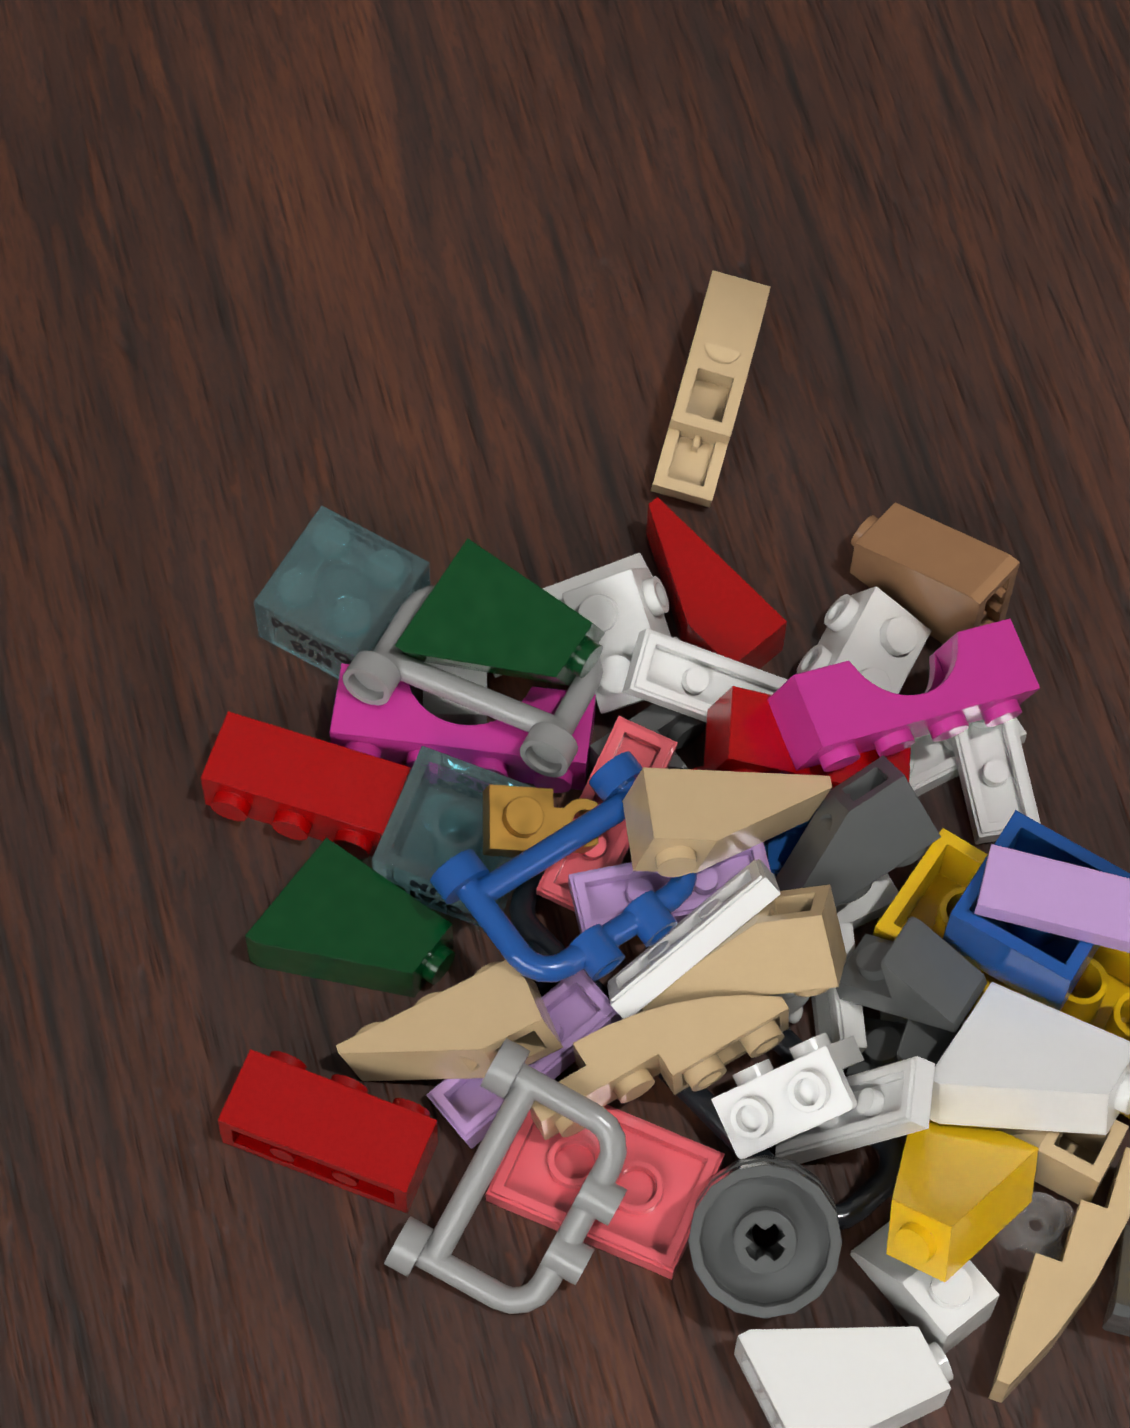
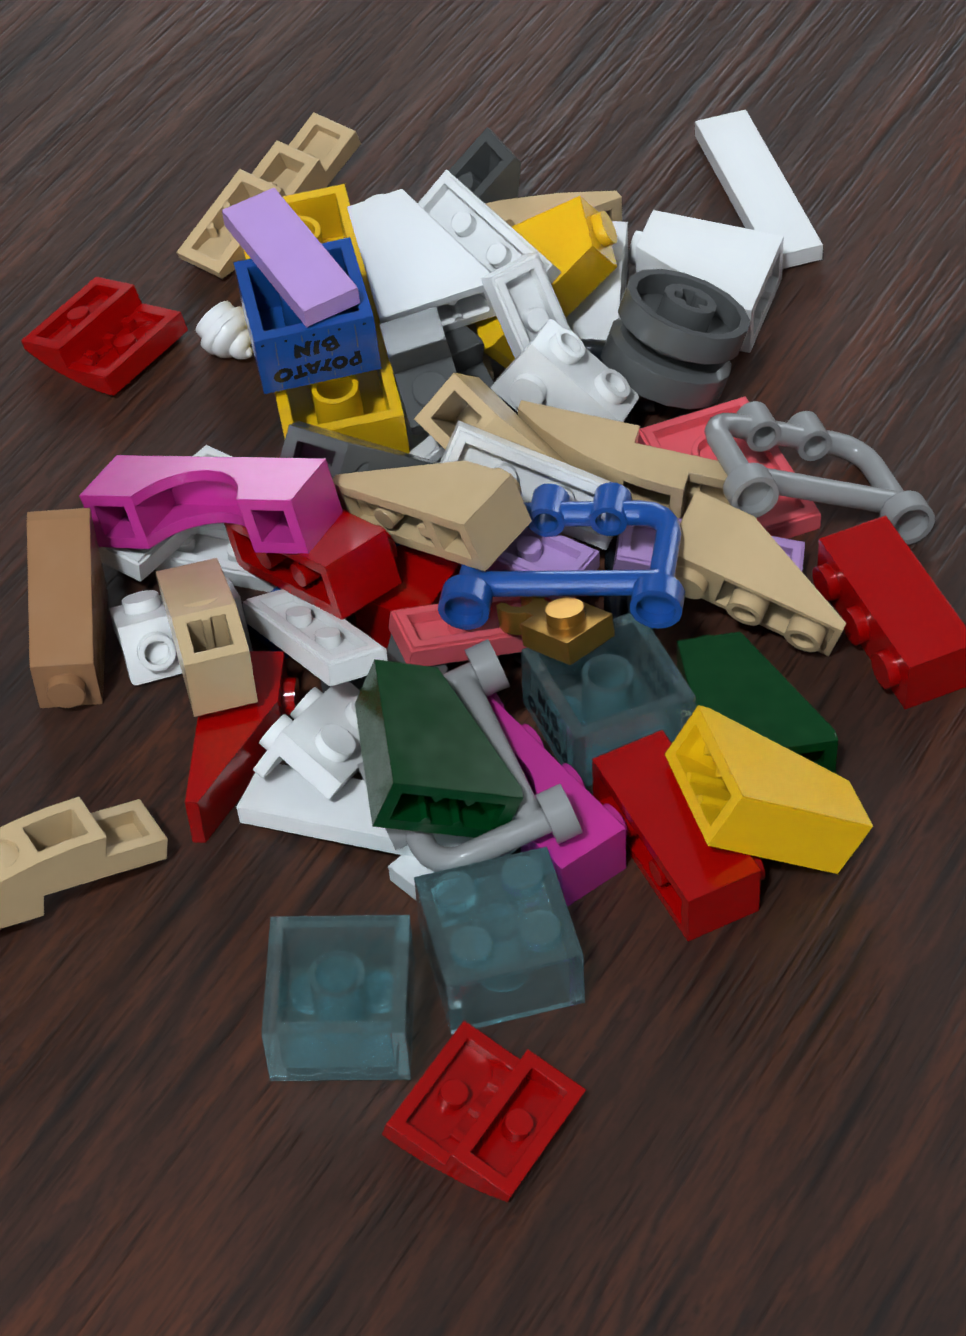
camera: 130 degrees left, 15 degrees down
(238, 496) = (483, 1113): none -> red slope
(244, 828) = (763, 796): none -> yellow slope
(398, 461) = (339, 998): none -> clear light blue brick
(784, 598) = (207, 637): none -> tan slope
(1013, 1152) = (477, 226): none -> white tile

